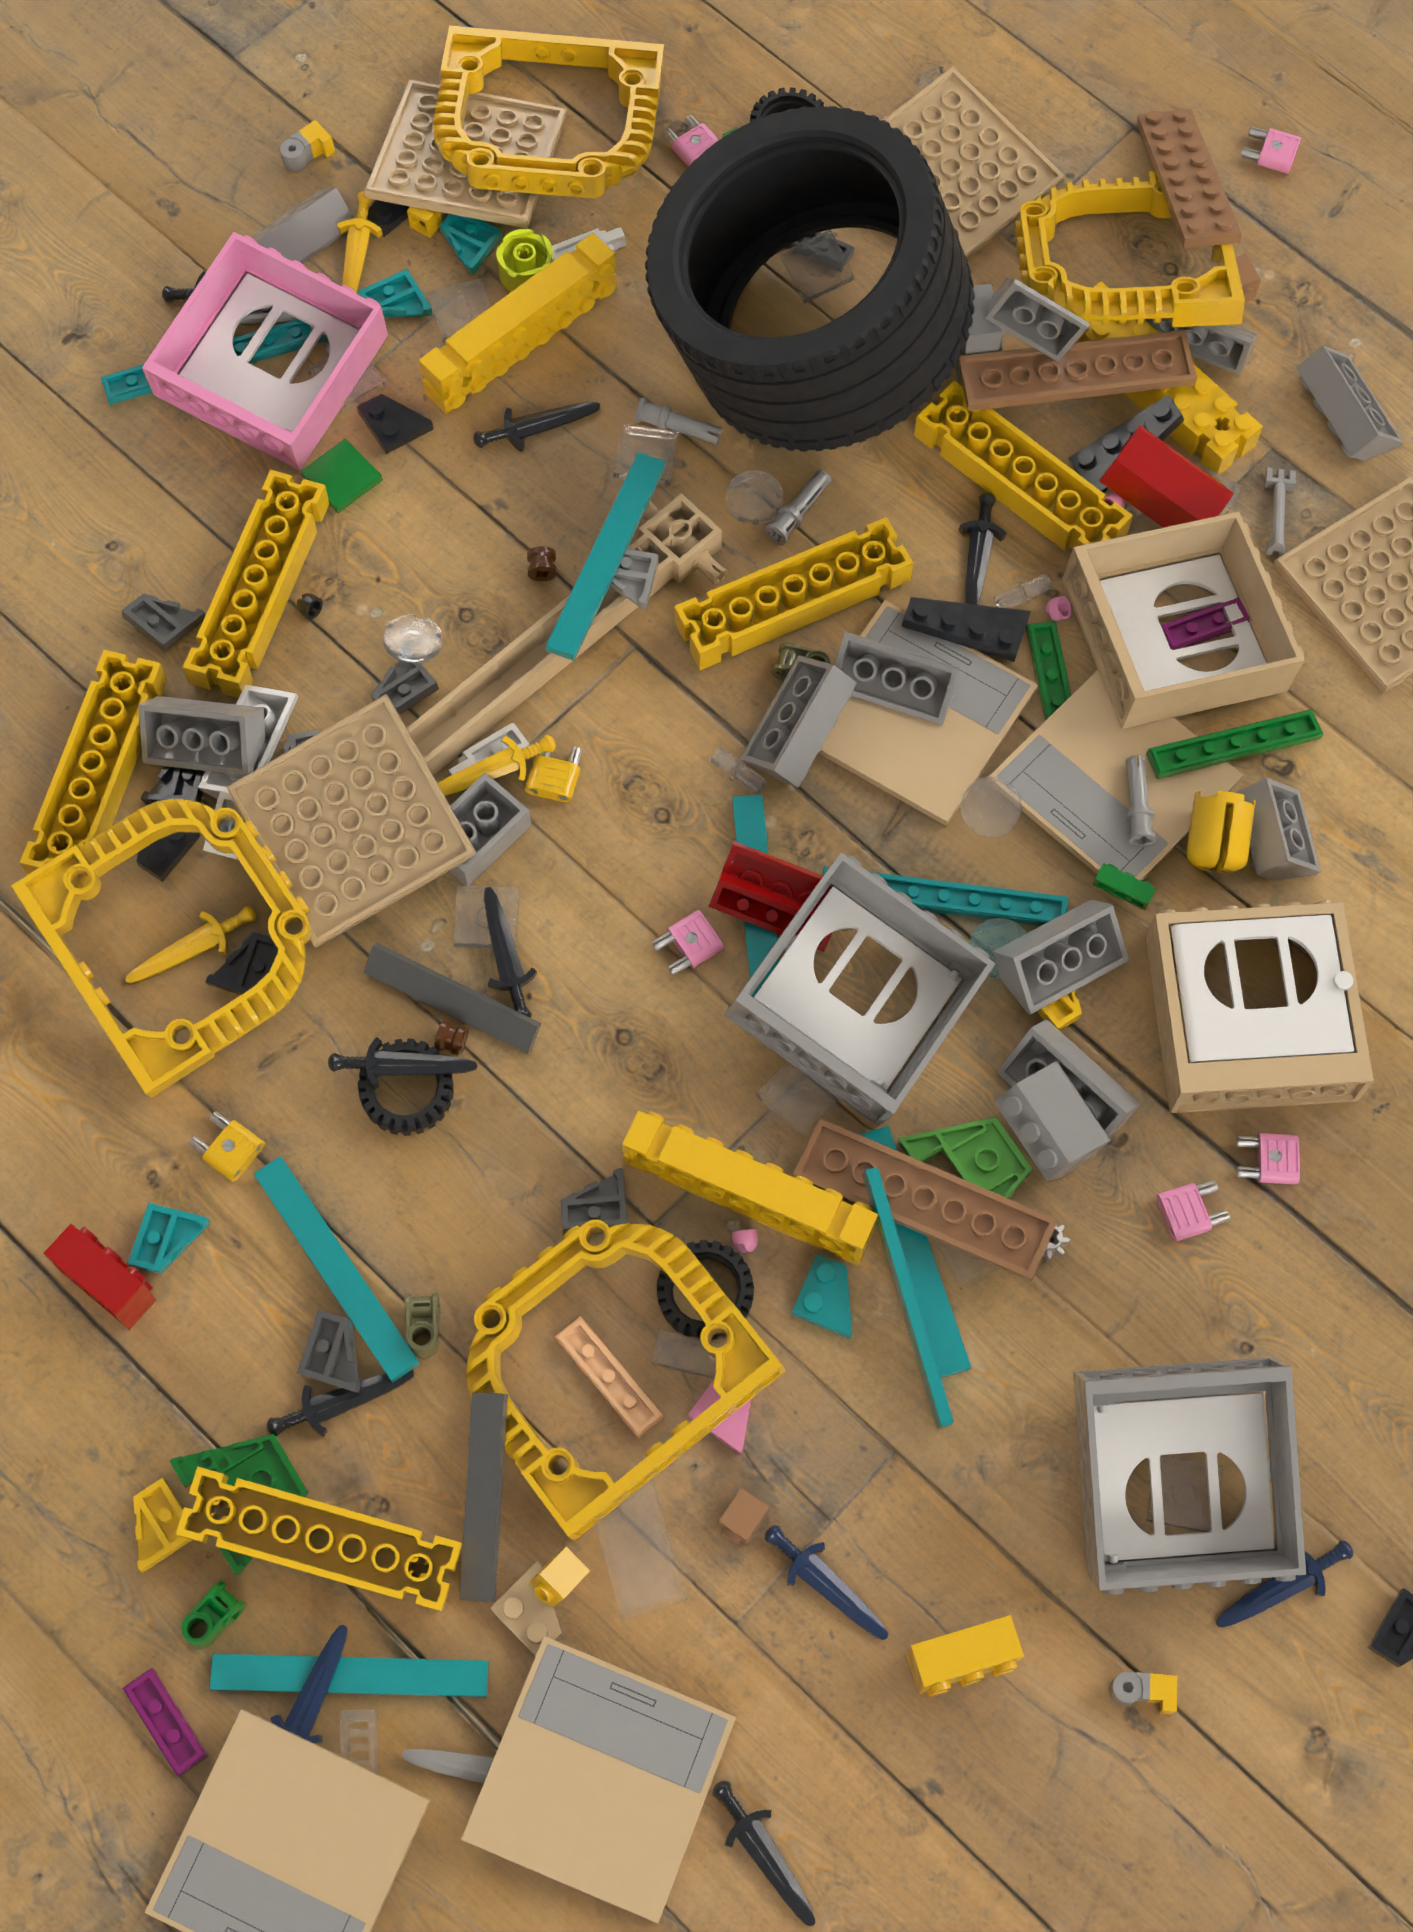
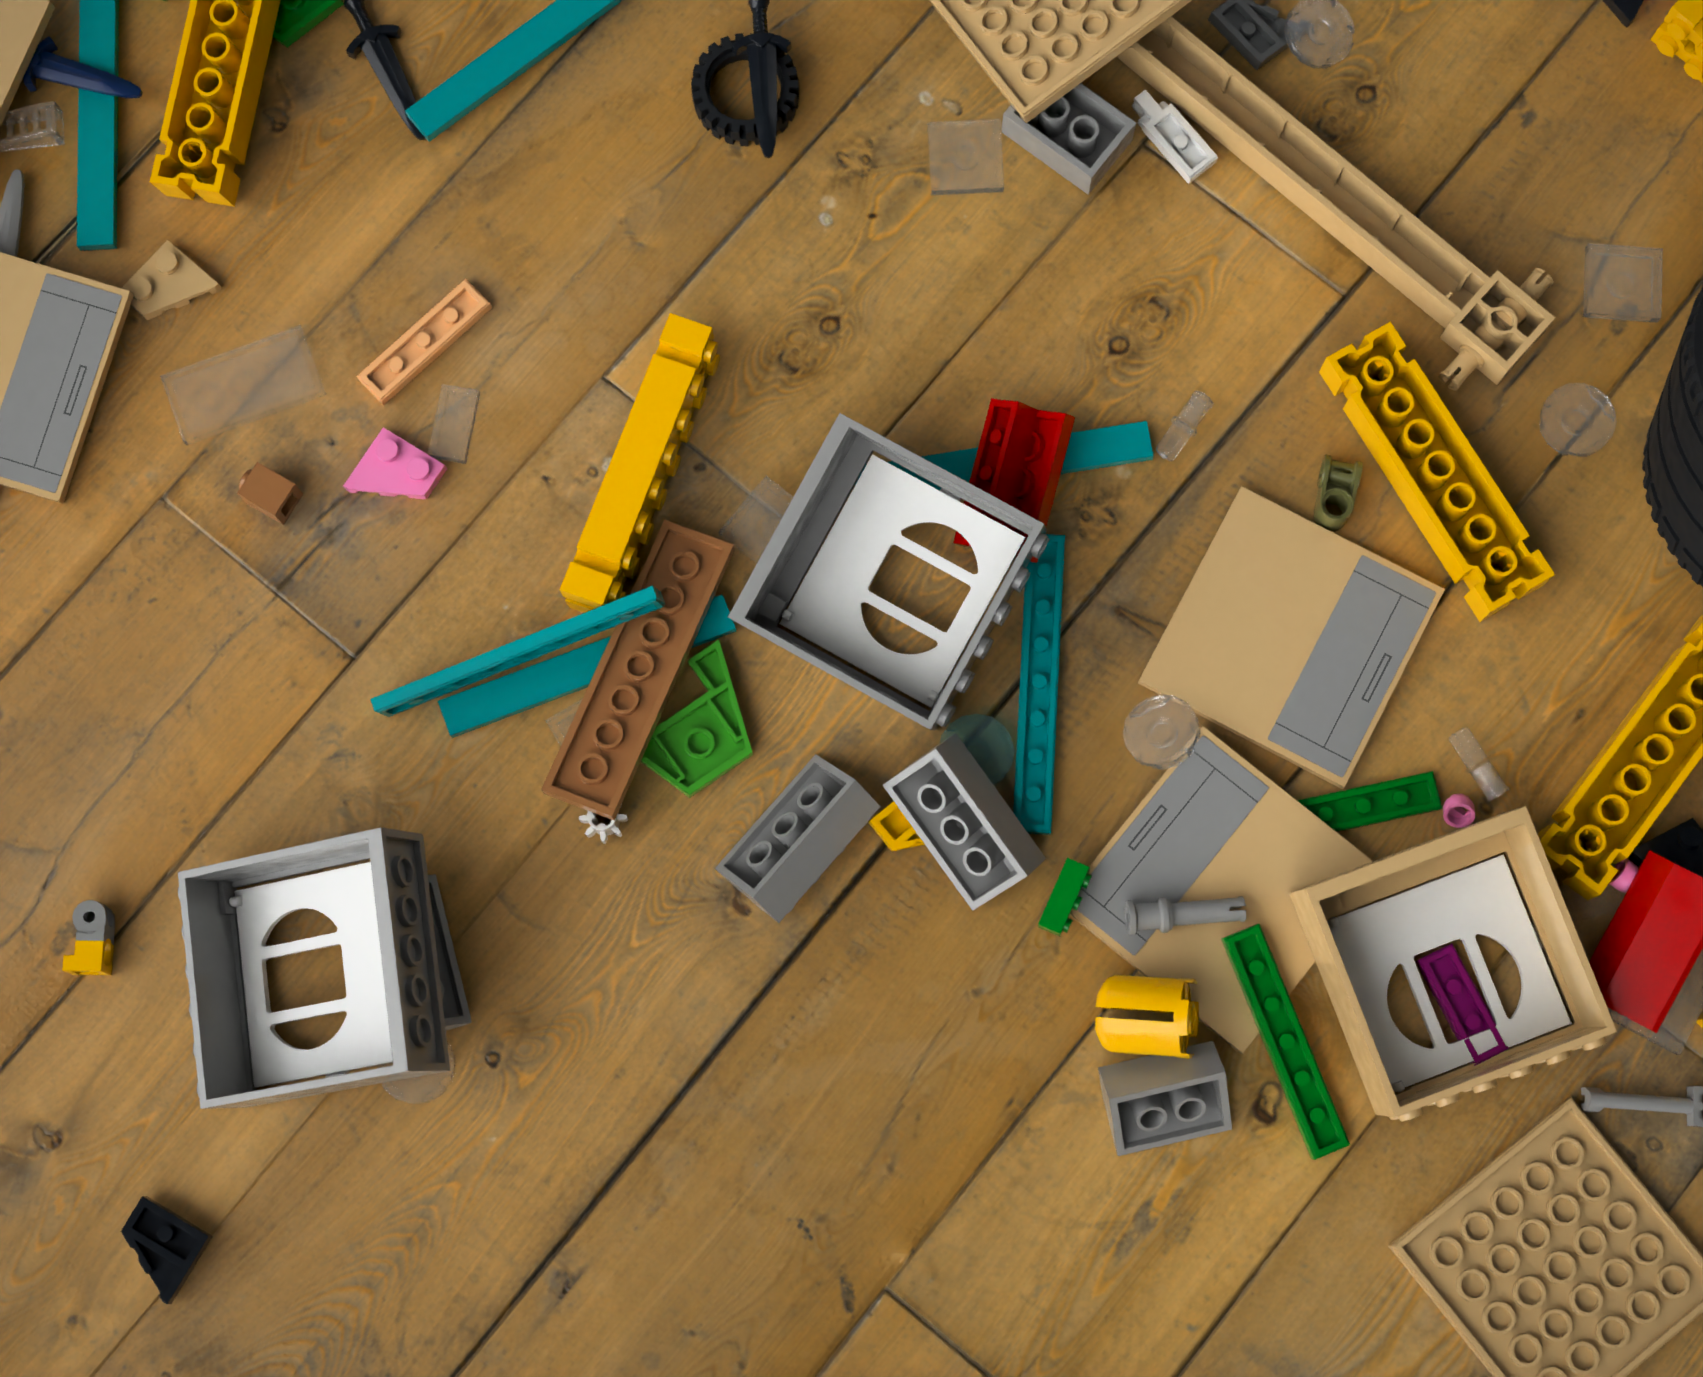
camera: 90 degrees right, 10 degrees up
(331, 1352) = (433, 47): dark grey wing -> none
(422, 1317) = (475, 137): olive piece -> none
(451, 1038) = (807, 131): reddish brown wheel -> none
(452, 998) = (857, 127): dark grey tile -> none
(483, 1497) = (280, 217): dark grey tile -> none
(497, 765) = (1152, 138): yellow sword -> none
(506, 955) = (913, 180): black sword -> none
(532, 424) = (1649, 144): black sword -> none
(541, 563) = (1443, 169): reddish brown wheel -> none
(554, 777) = (1153, 210): yellow piece -> none
(558, 1577) = (194, 302): yellow brick -> none
(596, 1201) = (616, 310): dark grey wing -> none
(605, 556) = (1443, 226): teal tile -> none
(636, 576) = (1426, 258): light grey wing -> none
(665, 418) = (1677, 299): light grey pin -> none
(693, 939) = (954, 391): bright pink piece -> none
(714, 1252) = (514, 393): black tyre -> none
(742, 1364) = (422, 466): yellow arch -> none
(745, 1240) = (587, 475): bright pink hinge -> none
(791, 515) = (1554, 465): light grey pin -> none
(799, 720) = (1250, 487): light grey slope -> none
(825, 1297) = (525, 570): teal wing -> none
(825, 1582) = (206, 588): dark blue sword -> none
(898, 678) = (1321, 600): light grey slope -> none
(965, 1656) = (116, 733): yellow brick -> none
(978, 627) = (1418, 702): black wing -> none
(979, 547) = (1533, 707): black sword -> none
(1052, 1121) = (743, 812): light grey slope -> none
(1185, 1493) = (310, 980): clear tile -> none
(1186, 1212) = (653, 982): bright pink piece -> none
(1262, 1054) = (868, 1094): door -> none
(1275, 1591) = (226, 1122): dark blue sword -> none
(1276, 1158) = (725, 1093): bright pink piece -> none

